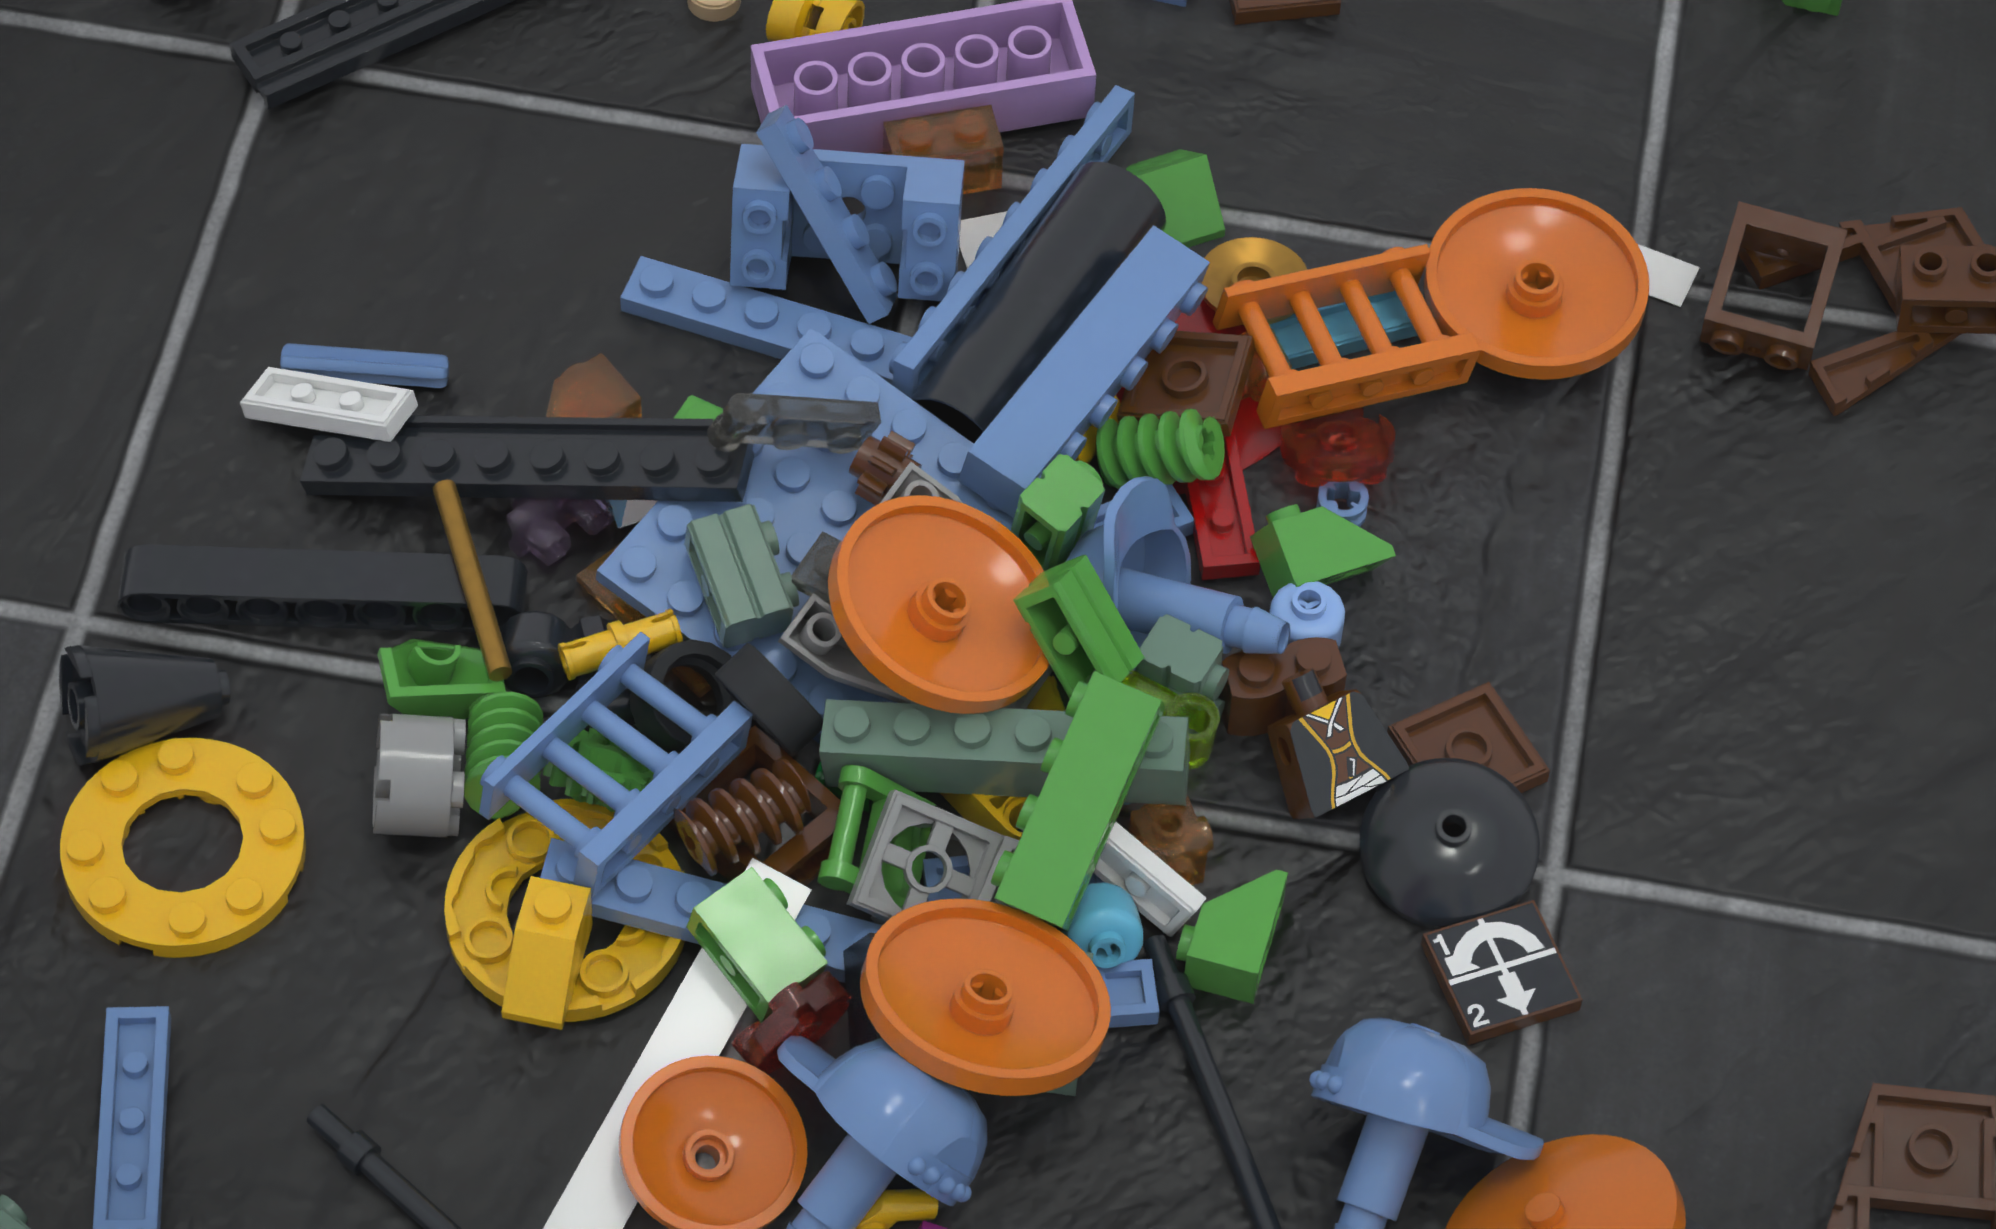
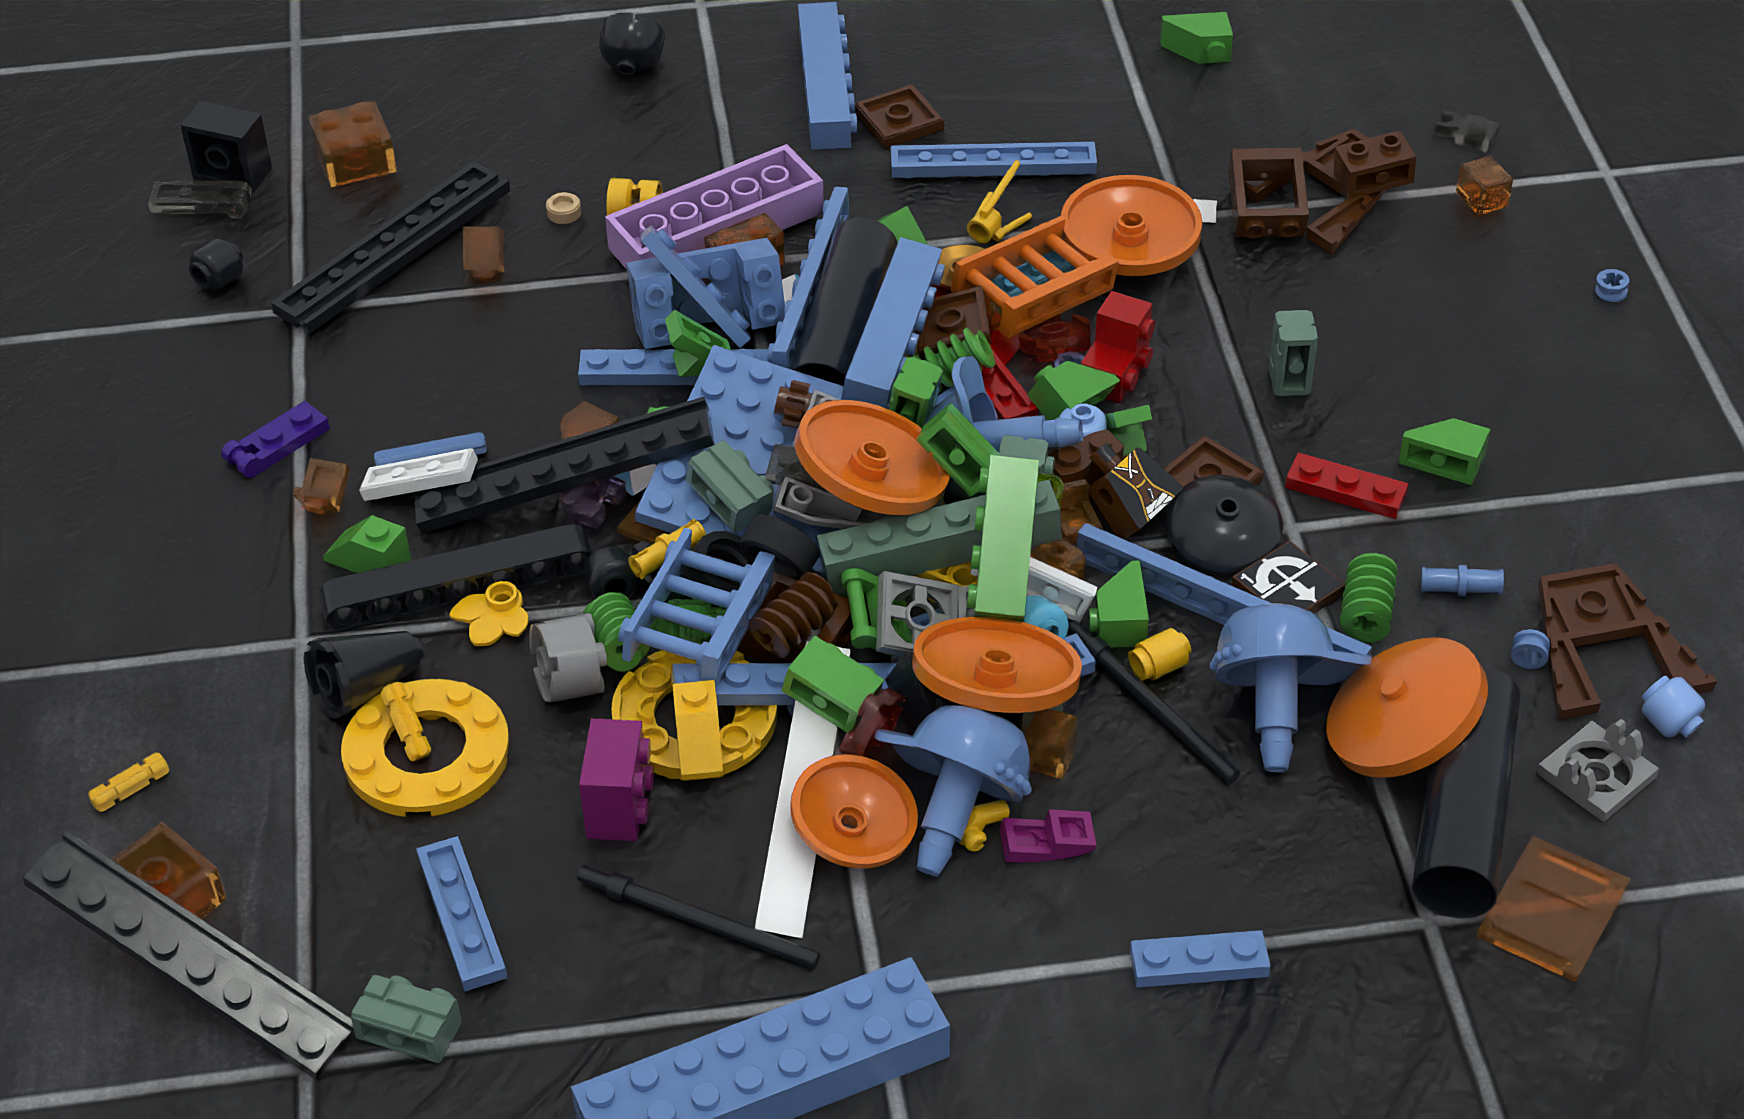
camera: 15 degrees left, 10 degrees down
(158, 277) = (275, 439): none -> dark purple plate
(165, 803) = (406, 721): none -> yellow axle
(192, 380) = (322, 486): none -> clear orange bracket
(221, 504) = (370, 546): none -> bright green slope
(343, 664) = (492, 613): none -> yellow plate
(406, 992) = (615, 779): none -> magenta brick
(434, 678) = (559, 600): bright green slope -> none
(472, 580) = (556, 540): pearl gold bar -> none
(561, 45) = (483, 251): none -> clear orange brick
(794, 304) = (691, 343): none -> bright green slope
(794, 423) = (731, 388): clear smoke plate -> none
(1038, 1128) = (1051, 742): none -> clear orange brick
(1238, 759) = (1076, 510): none -> clear orange bracket
(1258, 1030) = (1159, 654): none -> yellow brick
(1326, 208) = (987, 220): none -> yellow plant
(1370, 955) = (1180, 583): none -> medium blue plate
(1373, 636) = (1128, 428): none -> bright green slope
(1385, 97) = (993, 159): none -> medium blue plate
(1424, 495) = (1122, 341): none -> red brick
(1603, 1034) = (1368, 597): none -> bright green piece
(1665, 831) = (1346, 485): none -> red plate
(1675, 587) = (1293, 352): none -> sand green brick
(1758, 1047) = (1462, 580): none -> medium blue pin
(1804, 1194) = (1530, 649): none -> medium blue bush
(1841, 820) = (1446, 449): none -> bright green slope

